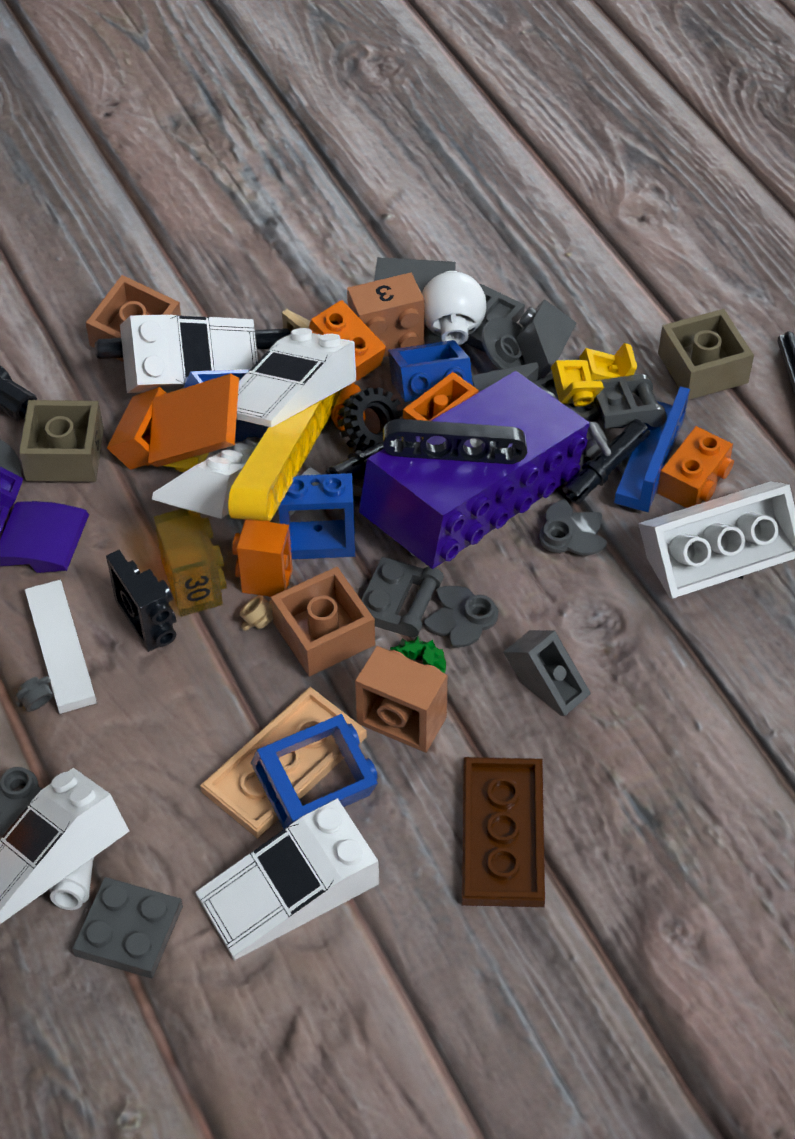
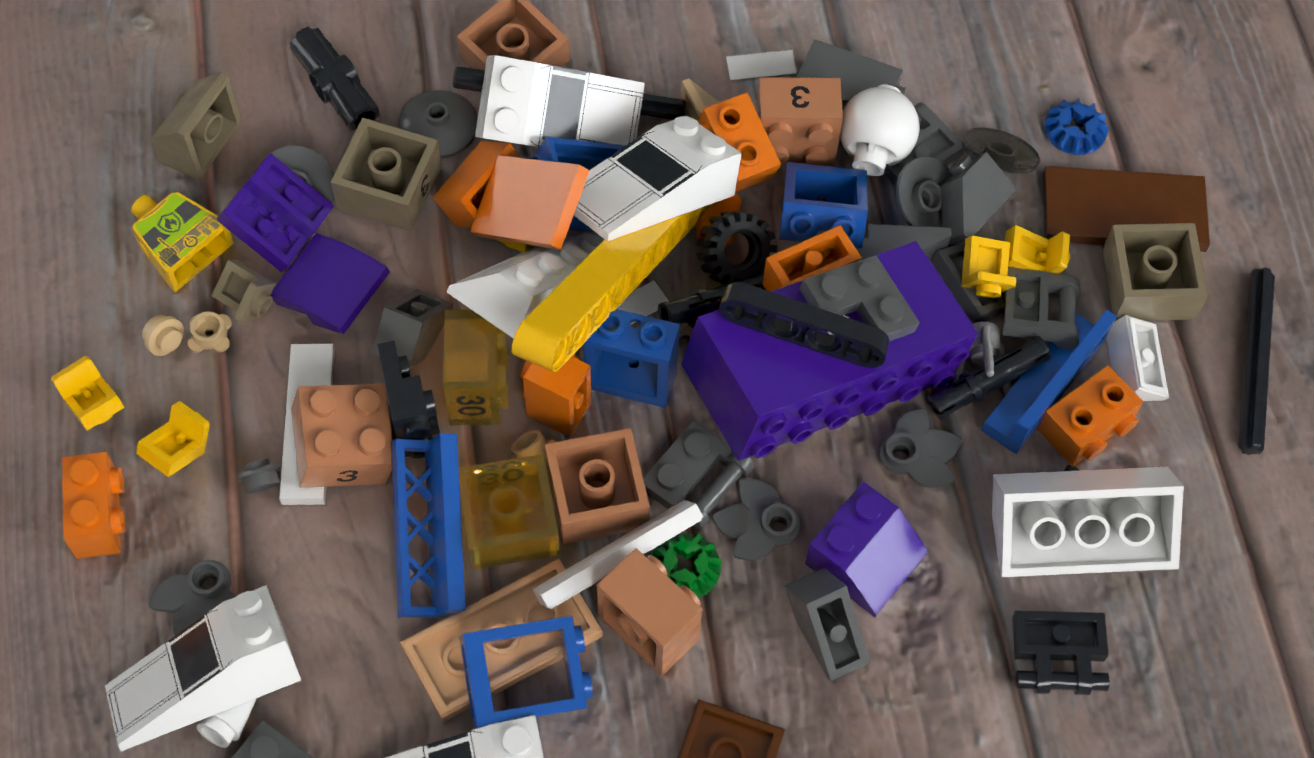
camera: 15 degrees right, 10 degrees up
(93, 388) = (453, 130): none -> dark grey dish
(96, 640) = (342, 435): none -> nougat brick
(131, 541) = (412, 324): none -> dark grey slope
(207, 684) = (444, 527): none -> blue fence
(256, 659) = (508, 511): none -> clear yellow brick
(333, 293) = (761, 65): none -> white sticker
(348, 674) = (606, 559): none -> white tile
(492, 407) = (864, 289): none -> dark grey plate
(560, 601) = (868, 548): none -> dark purple slope
(563, 301) = (1006, 150): none -> clear smoke dish
(604, 281) = (1071, 139): none -> blue gear
(641, 318) = (1093, 200): none -> reddish brown tile
(712, 414) = (1137, 357): none -> white slope
(733, 631) = (1061, 637): none -> black plate

